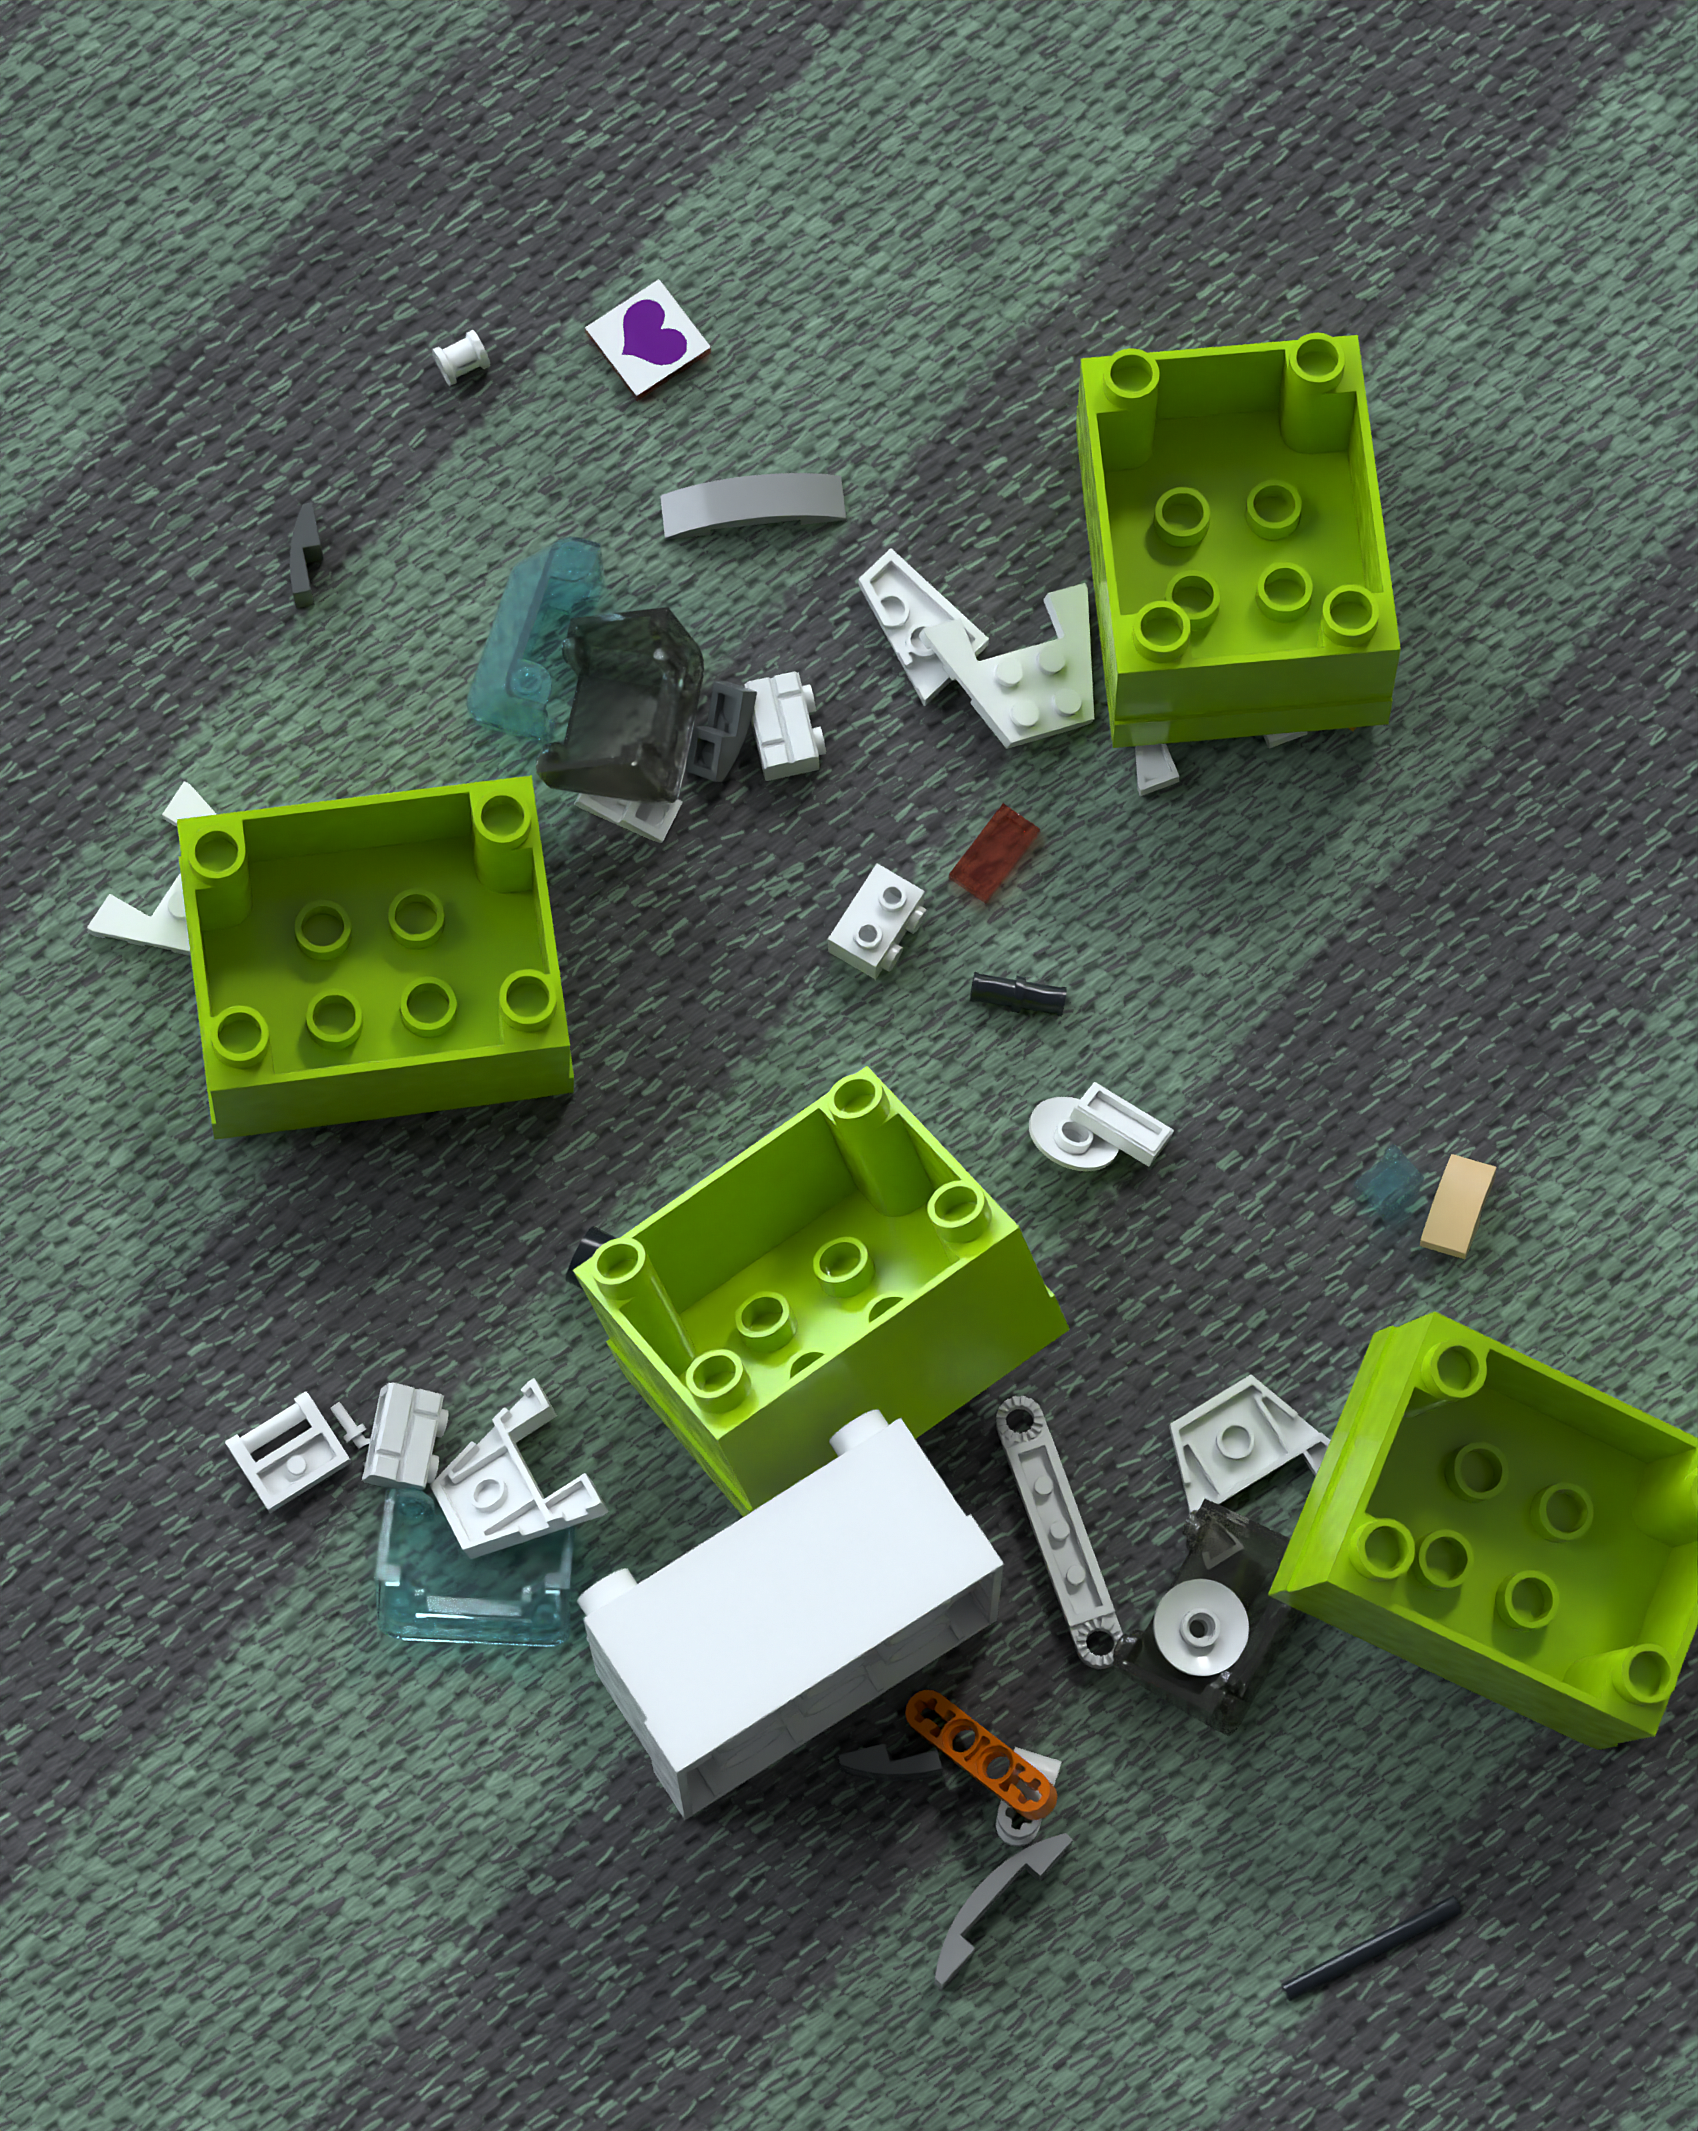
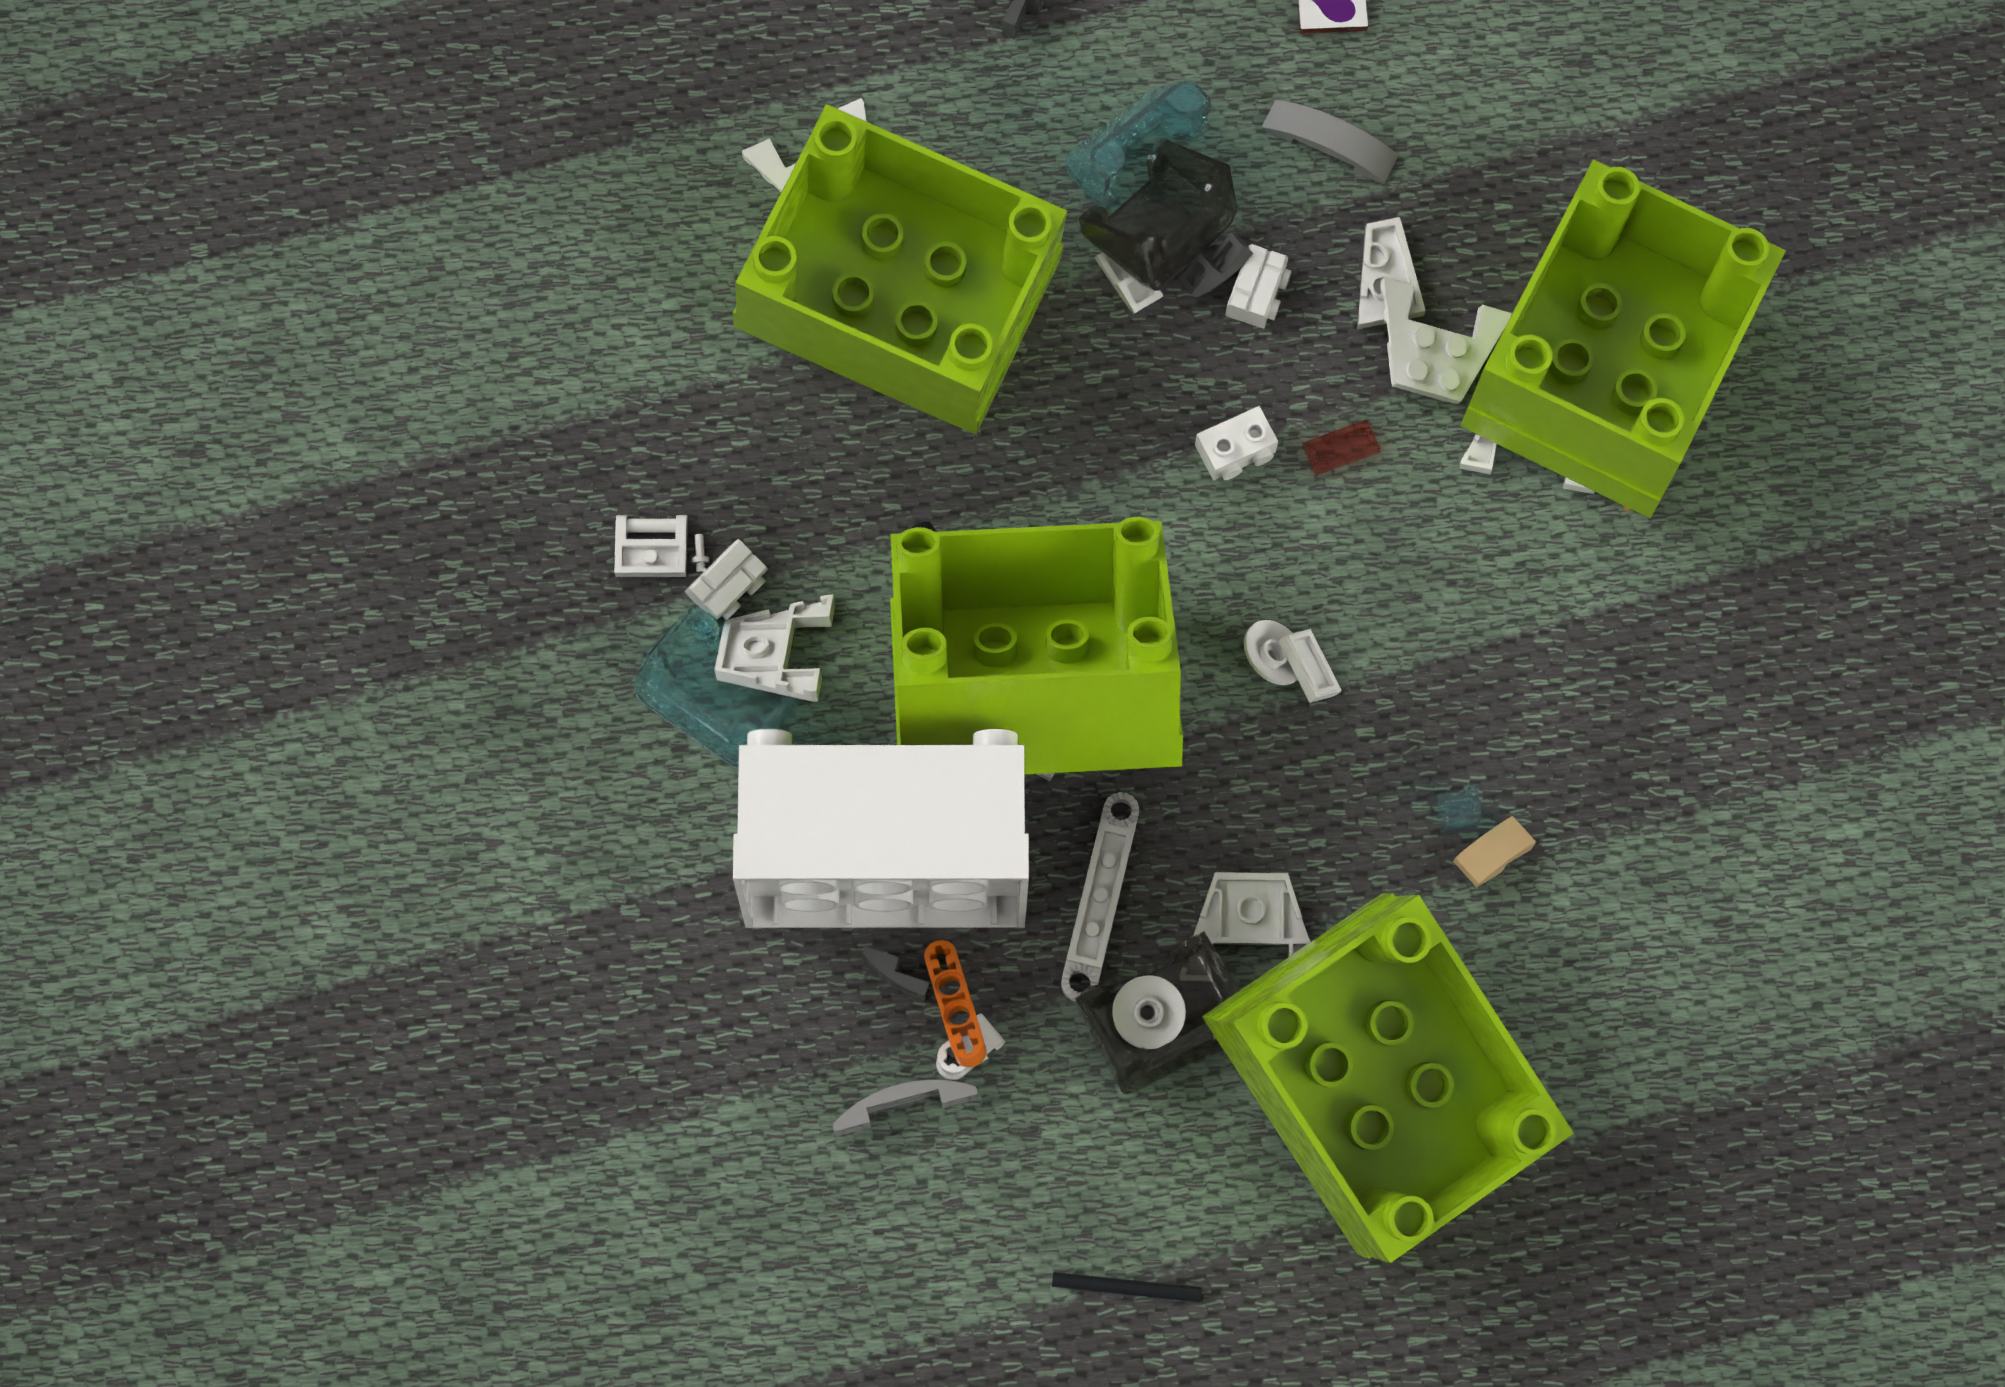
camera: 30 degrees right, 0 degrees up
(1018, 994) = (1297, 543): black pin -> none

